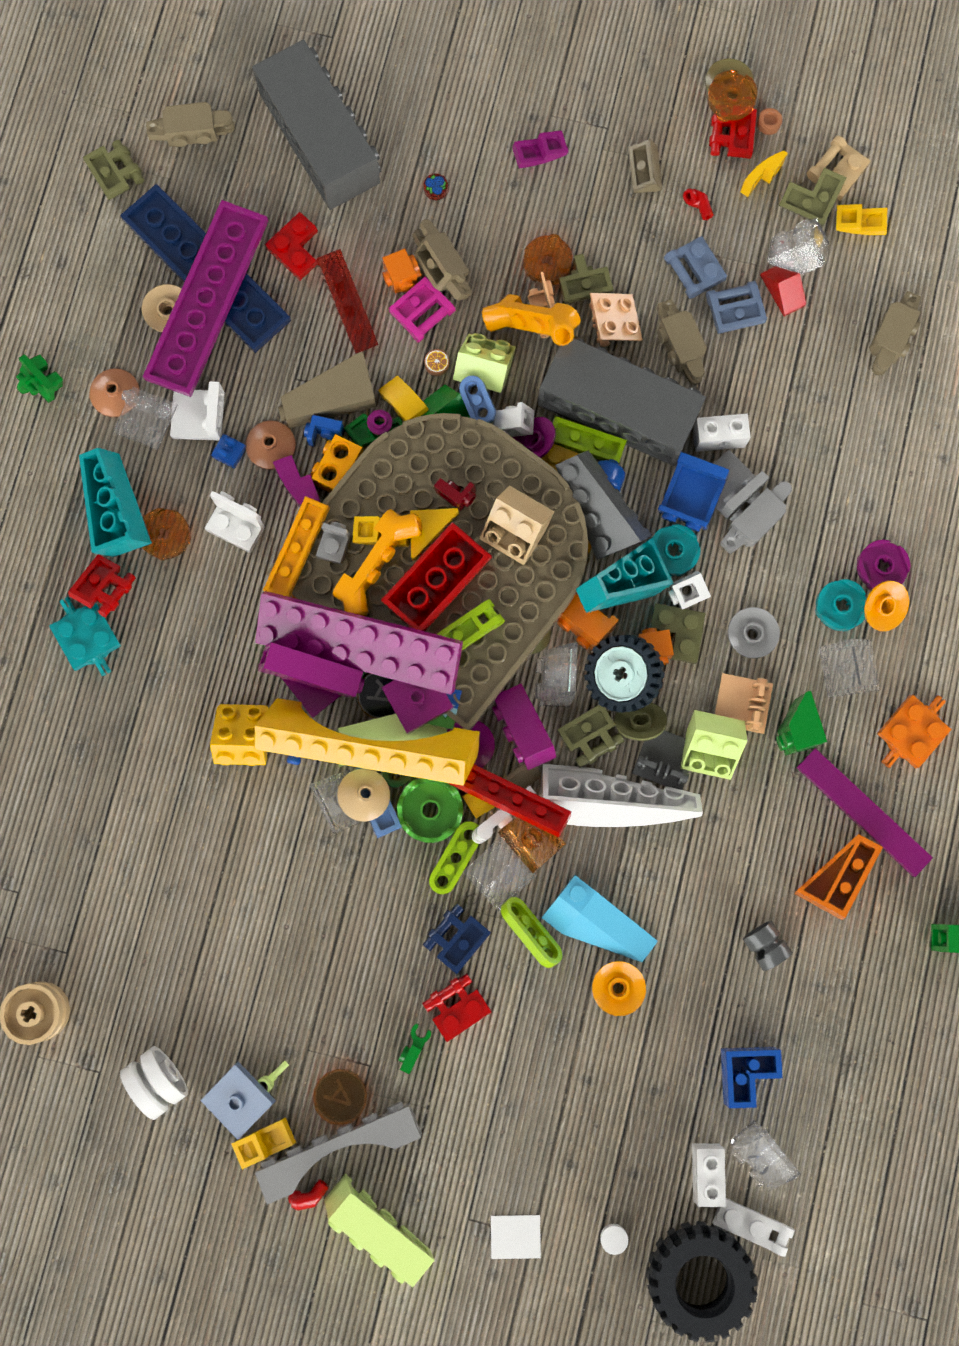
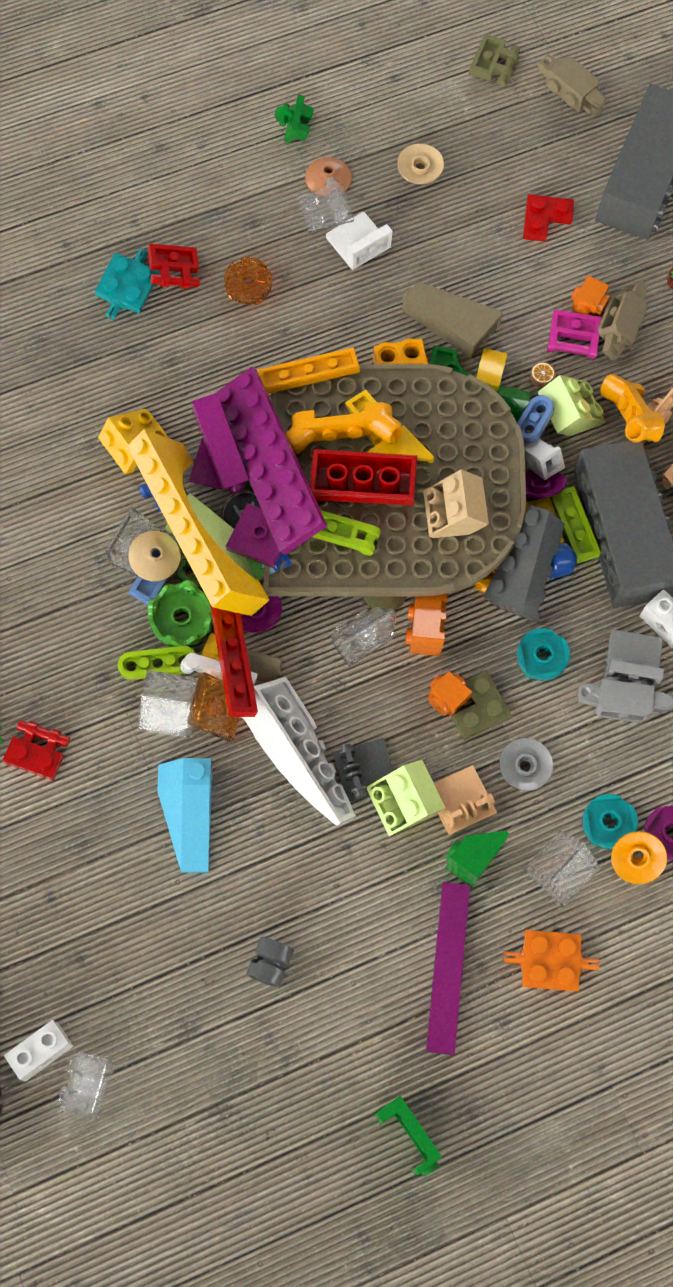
camera: 50 degrees right, 10 degrees down
(111, 505) = (238, 227): teal wedge -> none
(177, 241) = (474, 170): dark blue plate -> none
(205, 298) = (449, 181): magenta plate -> none
(229, 451) = (348, 281): blue tile -> none
(235, 522) = (296, 321): white bracket -> none
(264, 455) = (376, 314): nougat dish -> none
(297, 486) = (363, 336): magenta slope -> none
(324, 426) = (420, 328): blue bracket -> none
(334, 543) = (334, 392): light grey bracket -> none
(347, 301) = (534, 276): clear red slope -> none
(379, 429) = (459, 357): magenta plate -> none
(451, 493) = (443, 451): dark red bracket -> none
(463, 943) = (92, 717): dark blue plate -> none
(523, 727) = (301, 635): magenta brick -> none
(531, 932) = (145, 753): lime plate -> none
(586, 728) = (341, 689): olive plate -> none
(629, 579) = (483, 625): teal wedge -> none
(629, 998) = (139, 852): light orange dish -> none
(641, 665) = (407, 681): wheel -> none
(642, 723) = (380, 725): olive dish -> none
(693, 492) = (602, 634): blue panel -> none
(698, 590) = (526, 696): white brick -> none
(741, 1069) = (146, 1013): blue brick -> none
(753, 1226) = (21, 1124): white plate -> none
(841, 878) = (376, 983): orange wedge -> none

